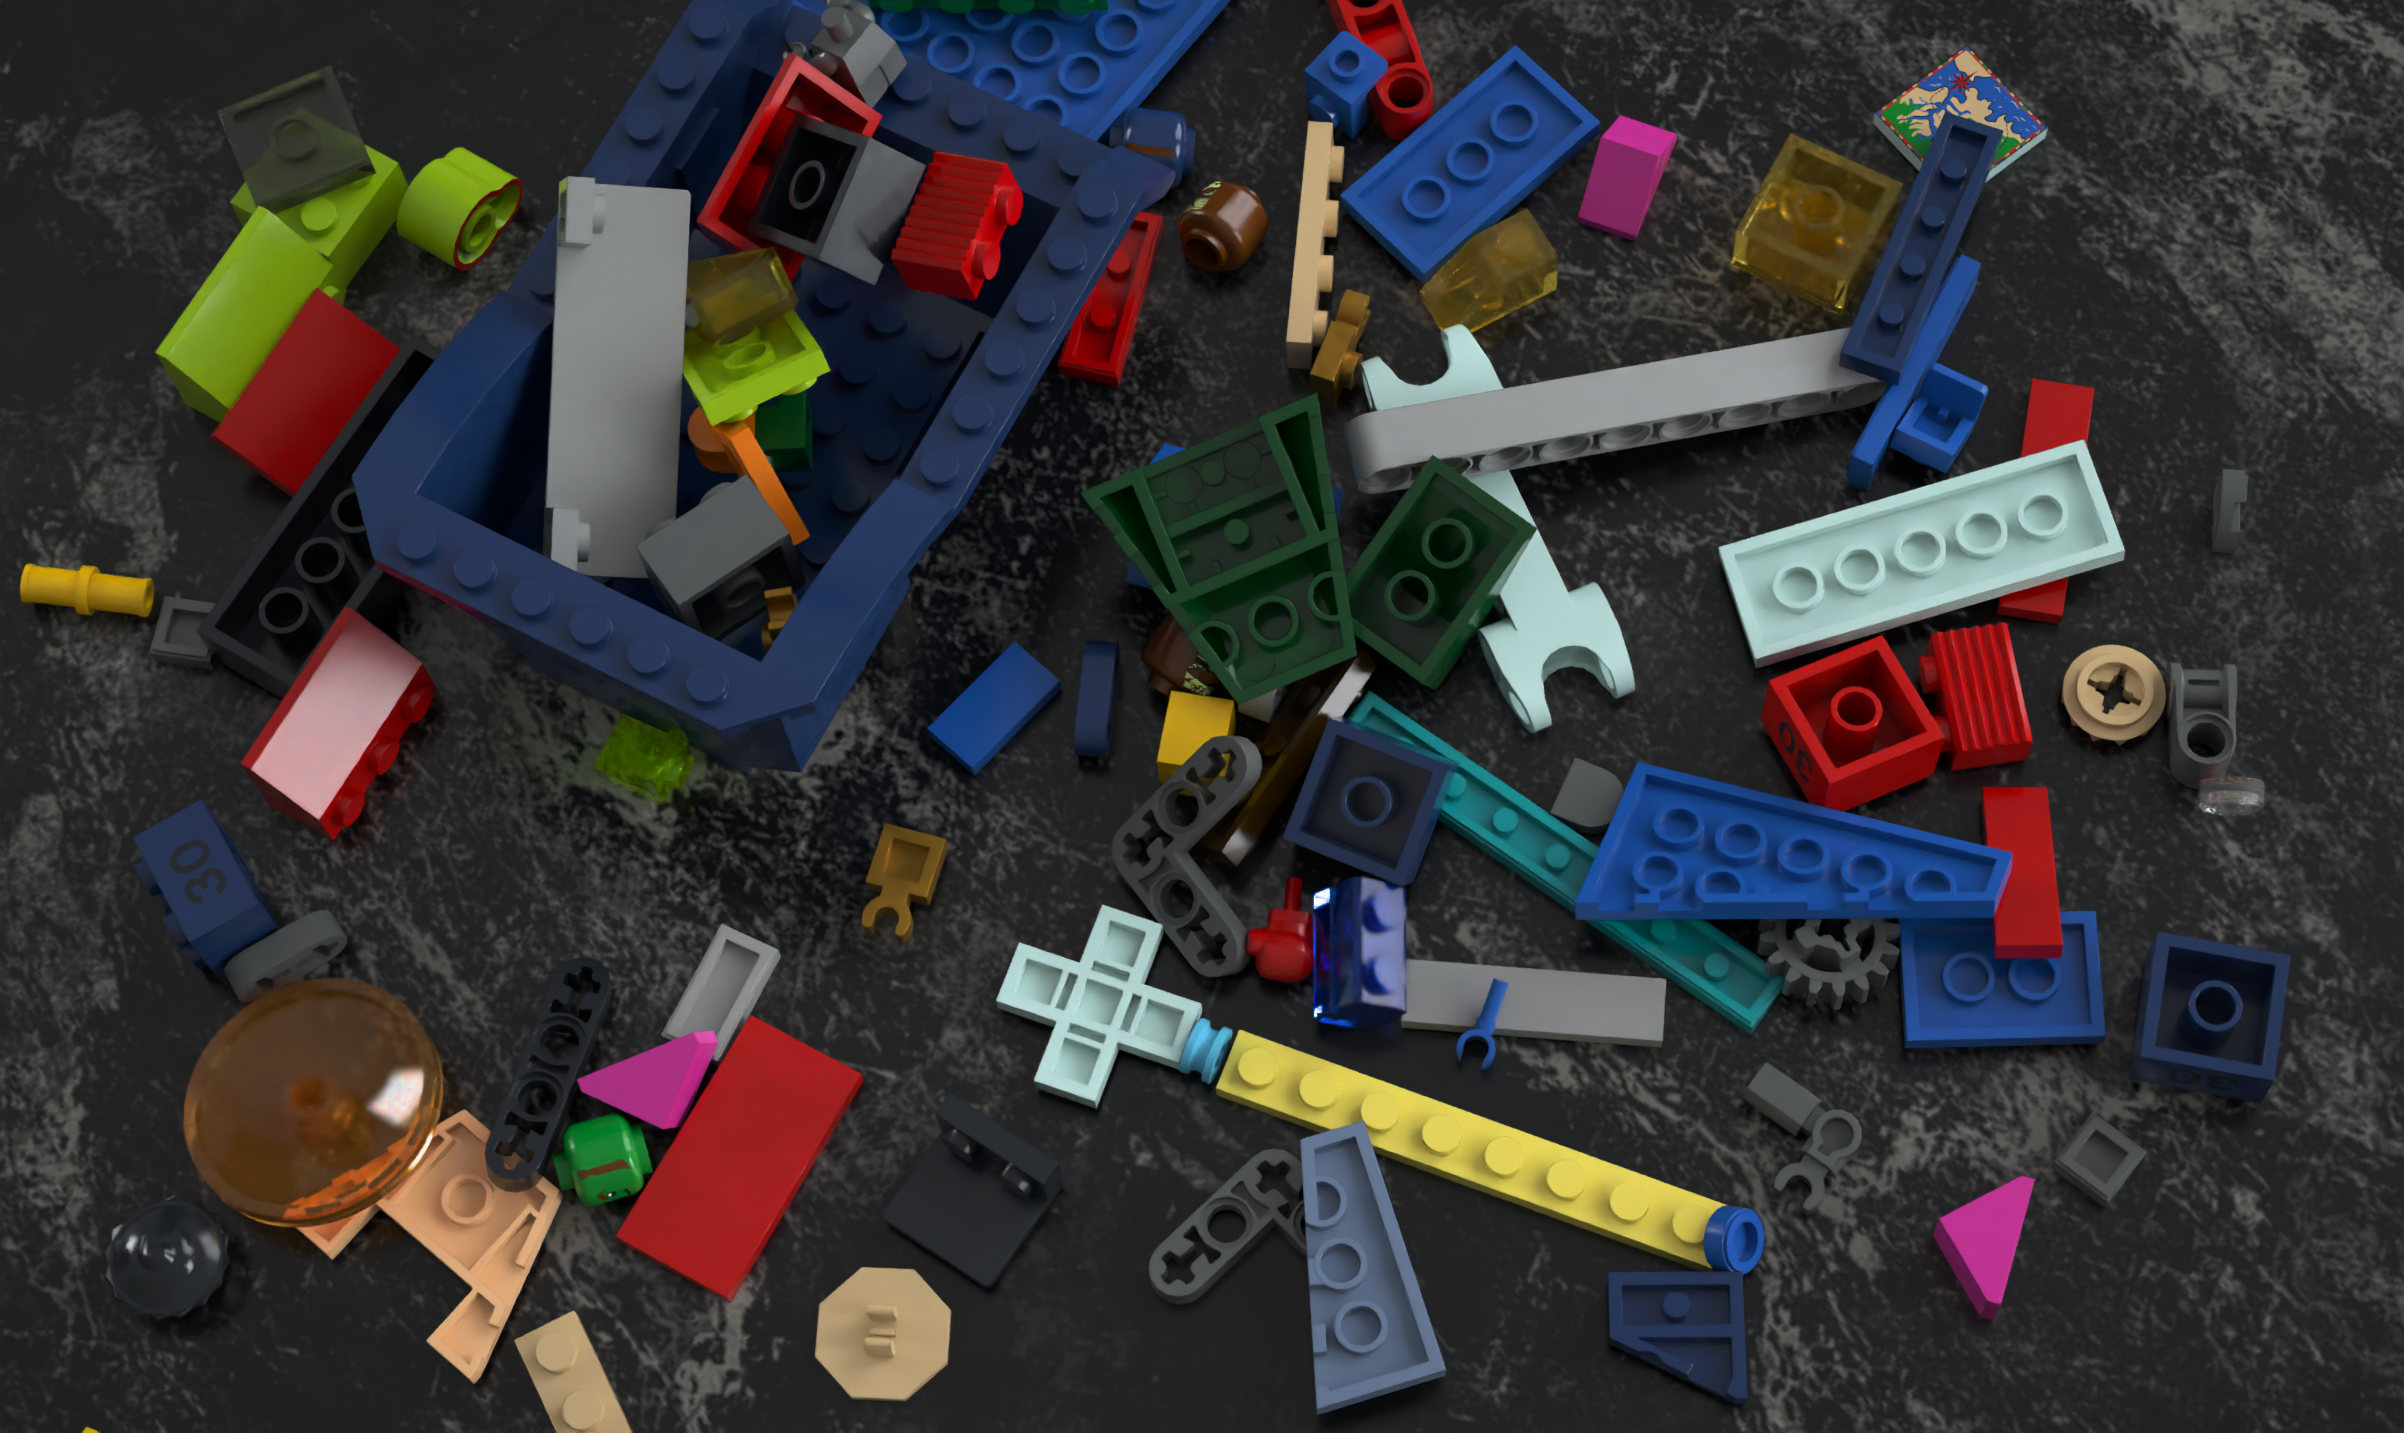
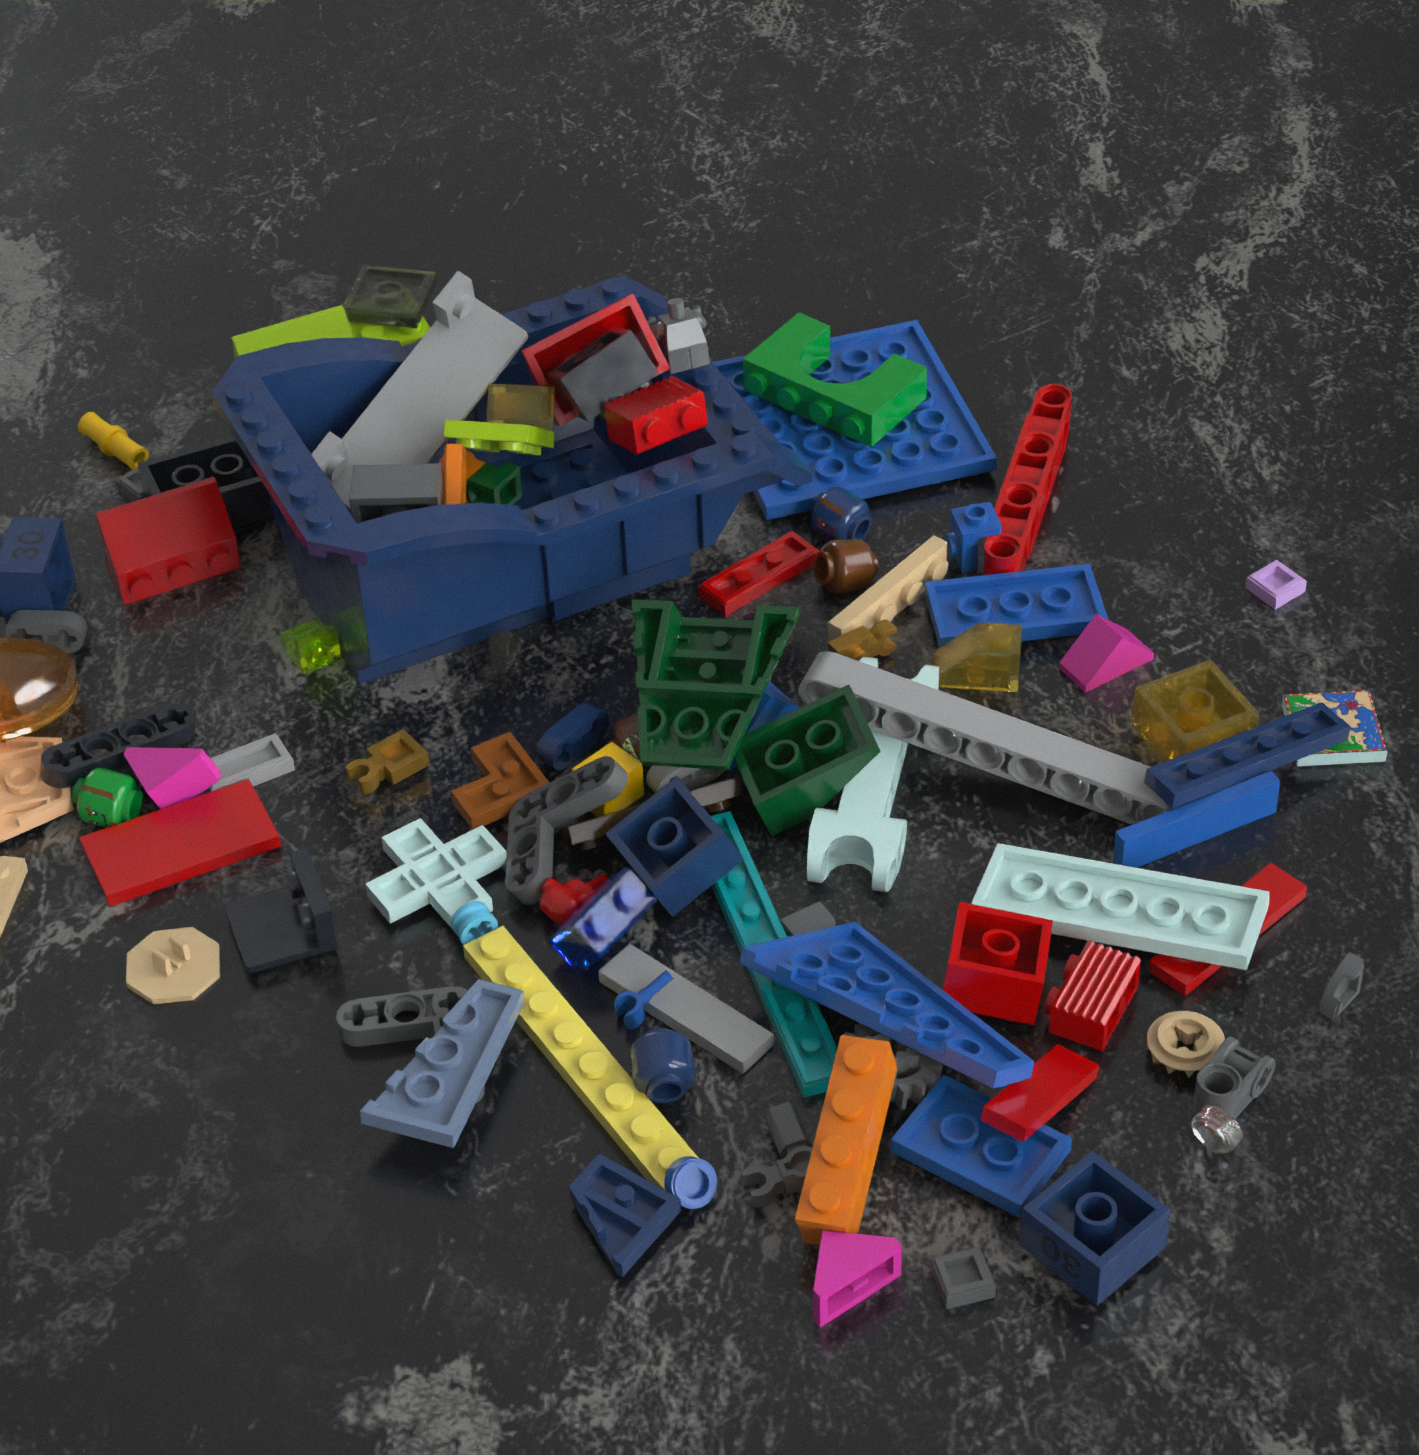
camera: 30 degrees right, 25 degrees down
(994, 708) = (518, 714): blue tile -> none
(1079, 819) = (507, 778): none -> dark orange plate
(1584, 1107) = (662, 1065): none -> dark blue head
(1885, 1089) = (847, 1138): none -> orange brick
(1940, 418) = (1193, 854): blue bracket -> none

